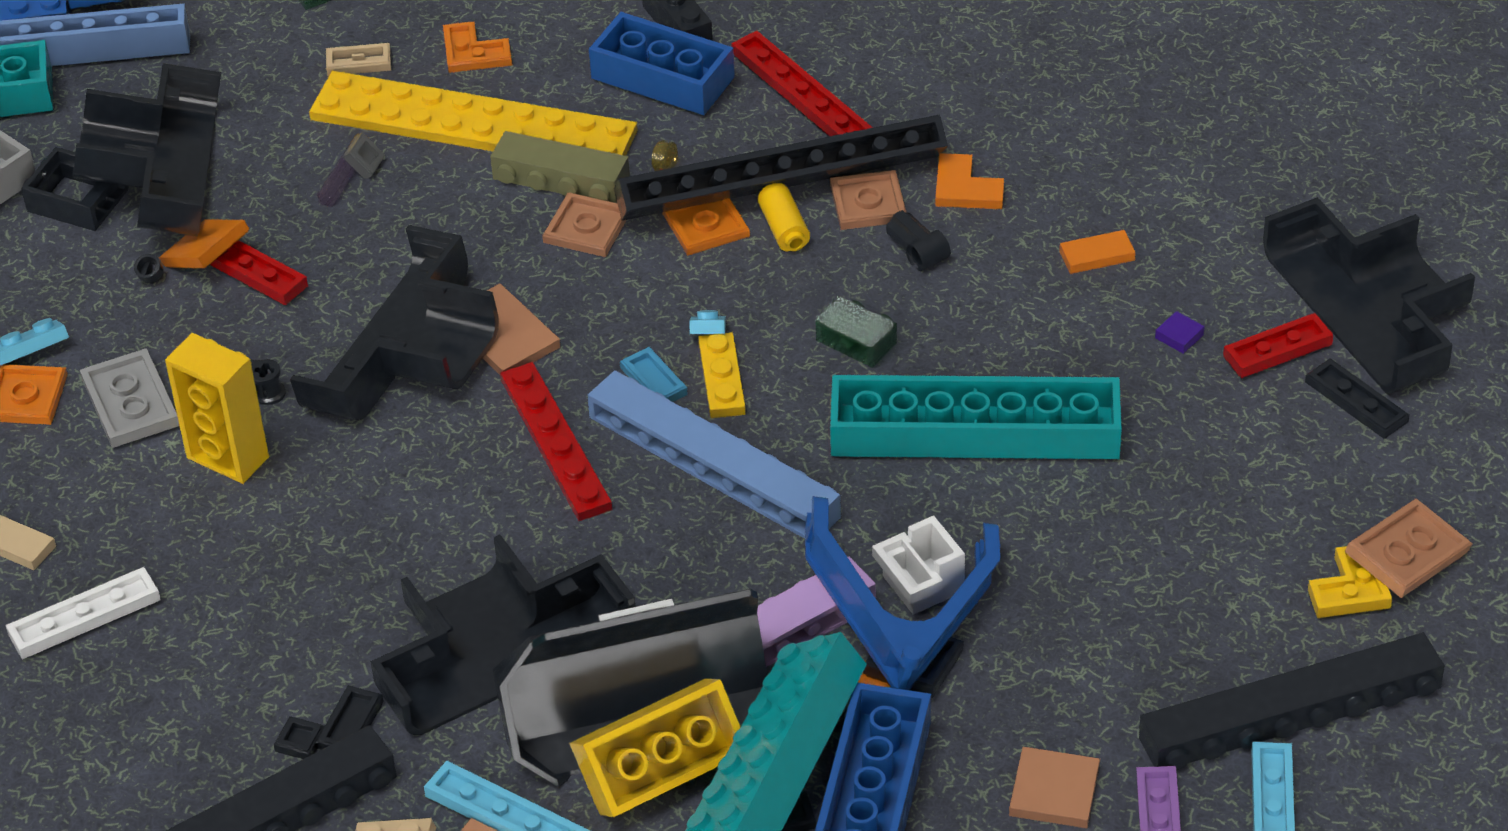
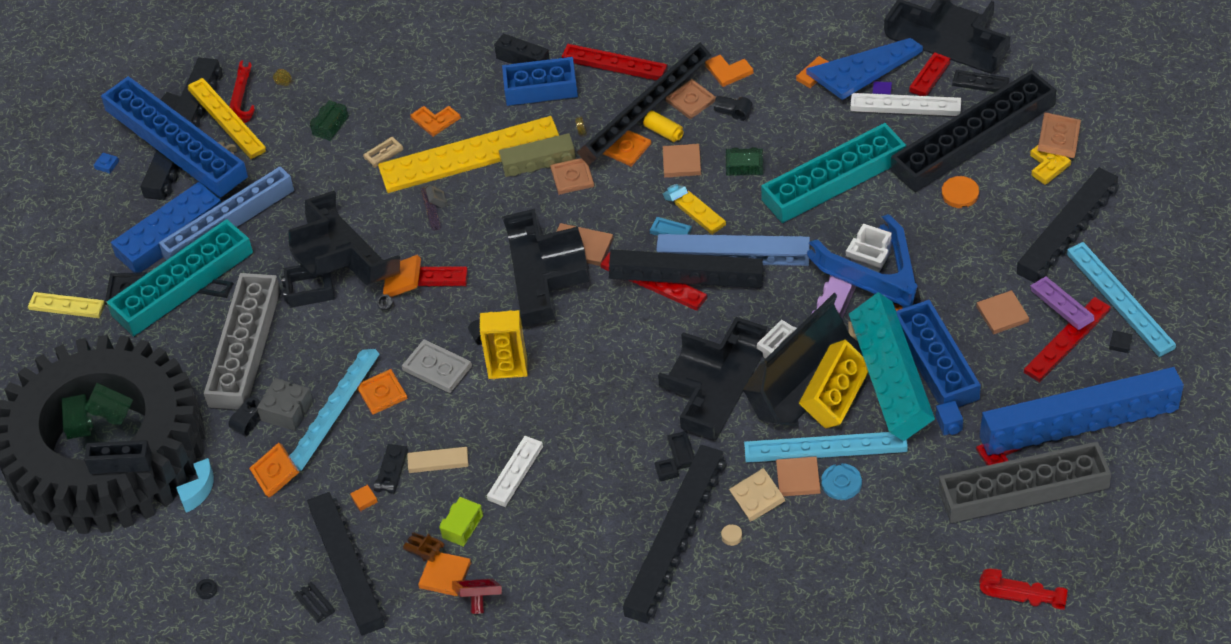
camera: 30 degrees left, 5 degrees up
(608, 444) = (685, 268): none -> black brick
(767, 283) = (681, 160): none -> nougat tile
(1155, 279) = (858, 70): none -> blue wing
(1162, 555) = (960, 191): none -> orange tile
(1197, 372) = (905, 104): none -> white plate
(1266, 466) = (973, 130): none -> black brick

